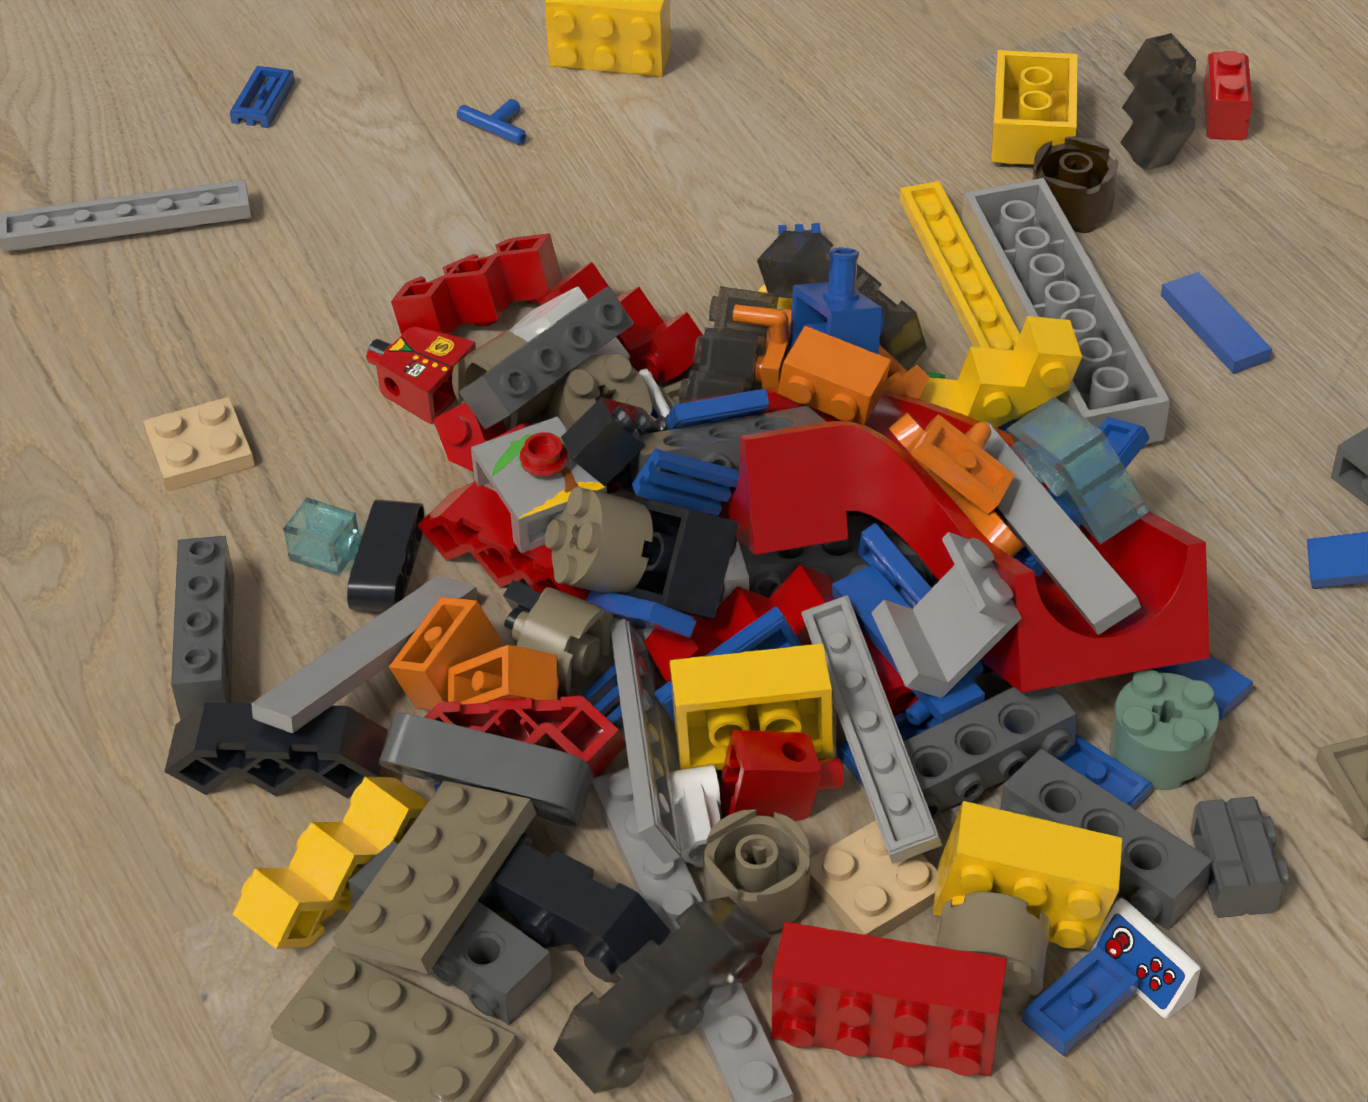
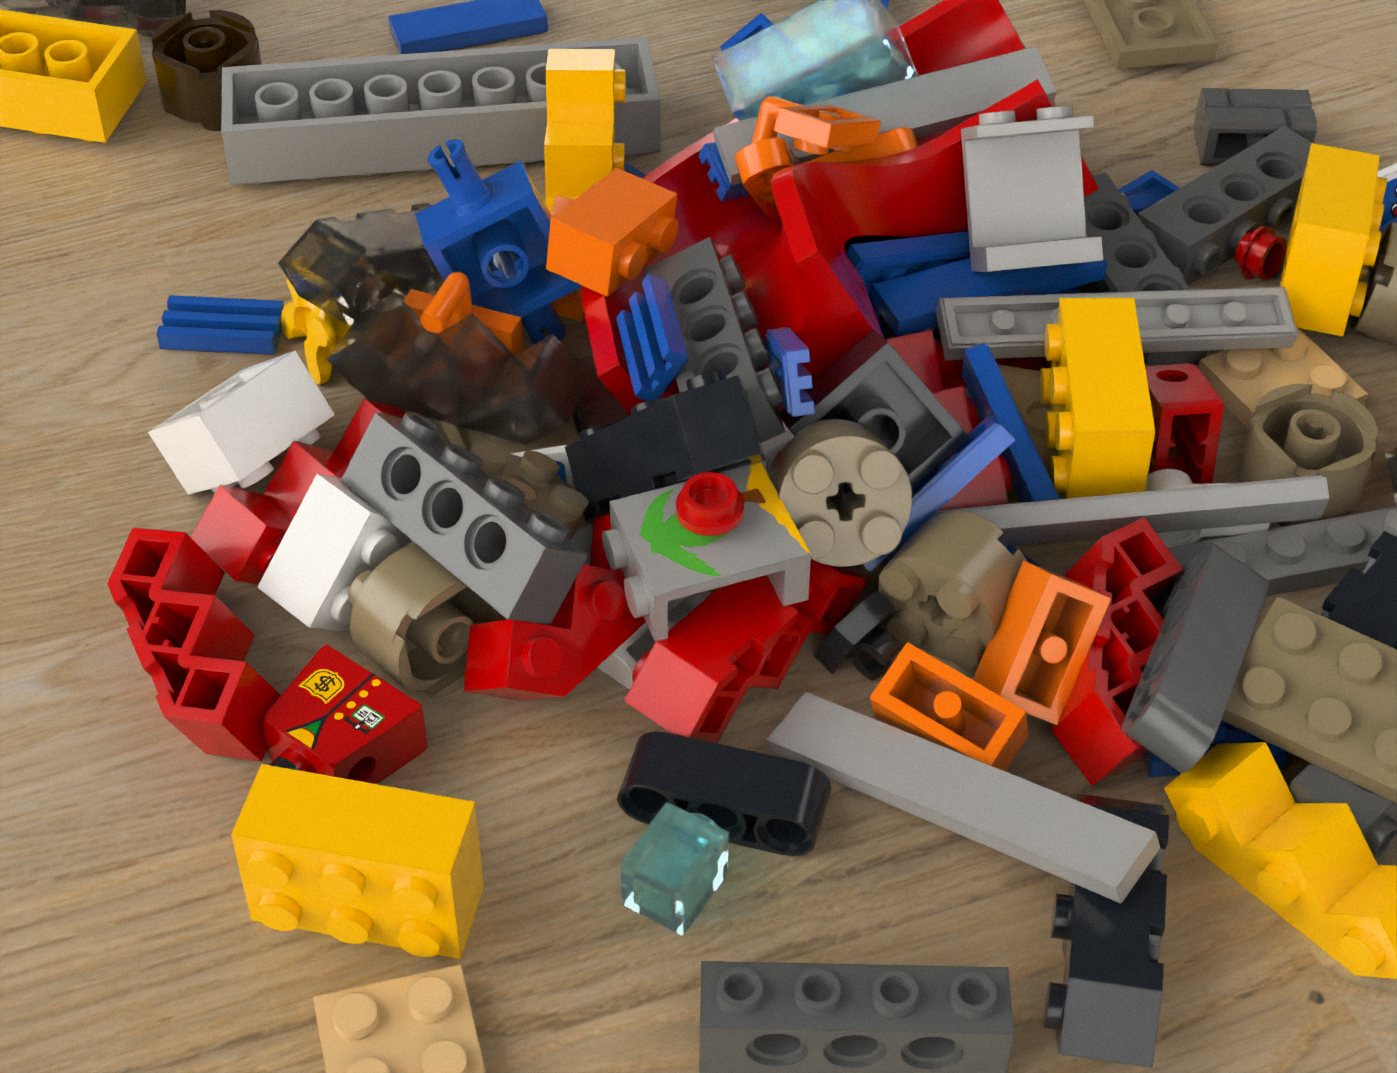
camera: 85 degrees left, 0 degrees up
(301, 386) = (360, 861): none -> yellow brick
(662, 268) = (243, 425): none -> white brick
(959, 268) = (315, 187): yellow plate -> none
(1164, 728) = (1120, 130): sand green brick -> none

